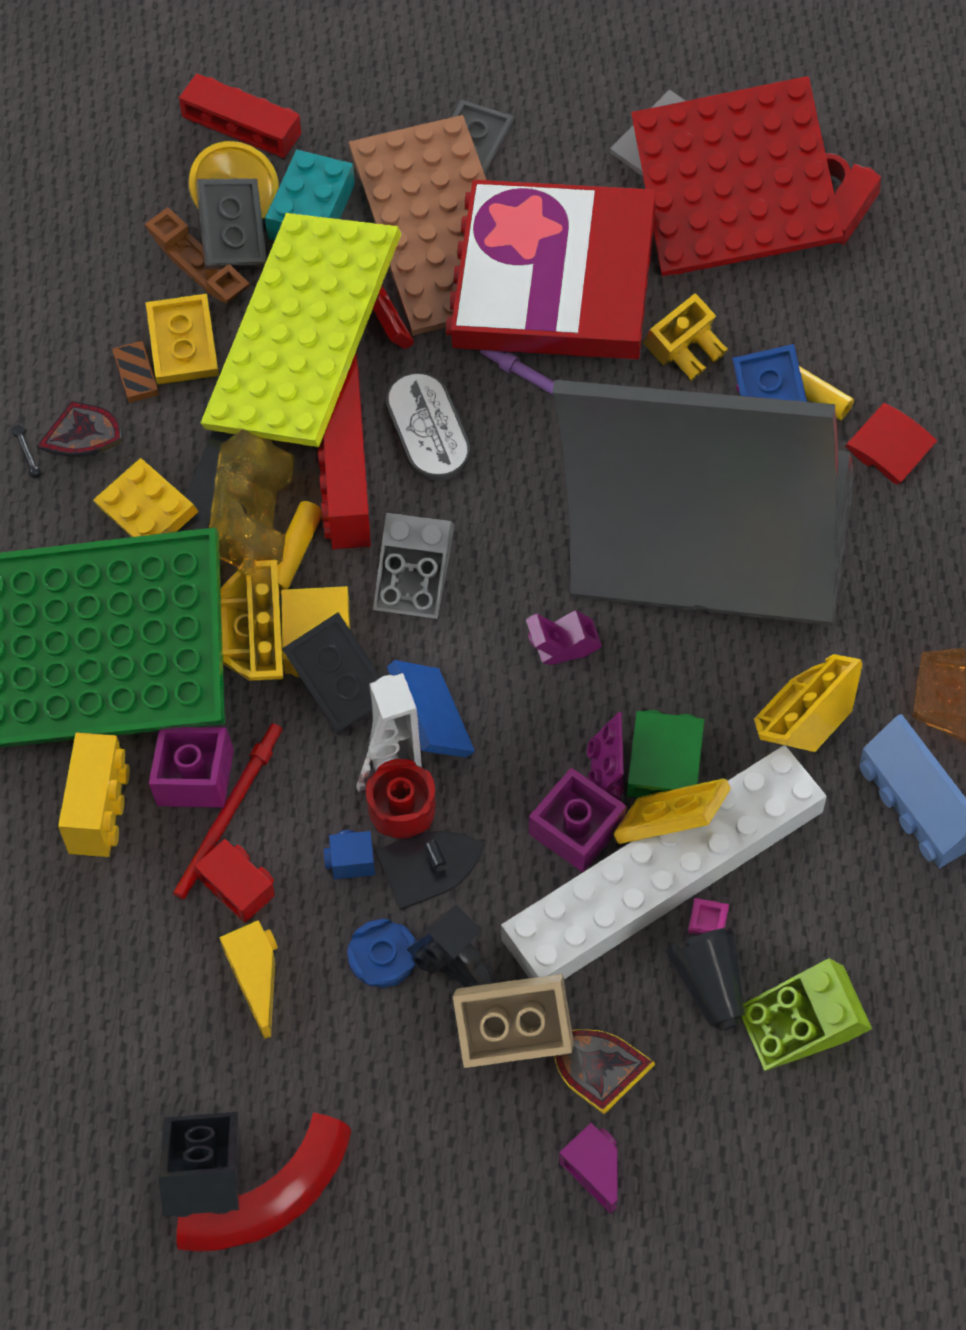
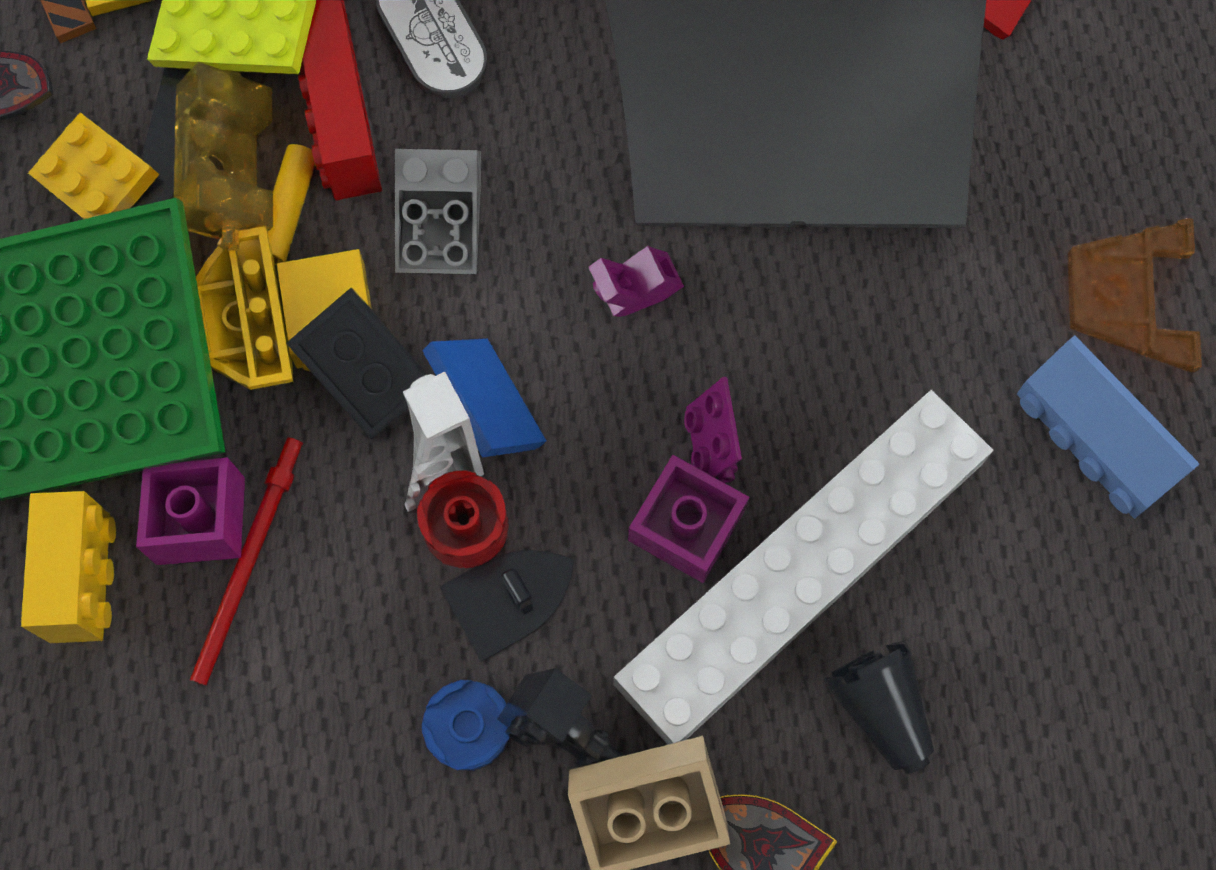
camera: 10 degrees left, 10 degrees up
(235, 879) = (267, 654): red brick -> none
(253, 964) = (306, 773): yellow slope -> none
(350, 854) = (408, 600): blue brick -> none
(664, 752) = (784, 420): green brick -> none
(672, 811) = (809, 497): yellow tile -> none
(707, 916) = (866, 623): dark pink tile -> none
(805, 1015) = (1007, 740): lime slope -> none
(811, 704) = (950, 331): yellow wedge -> none

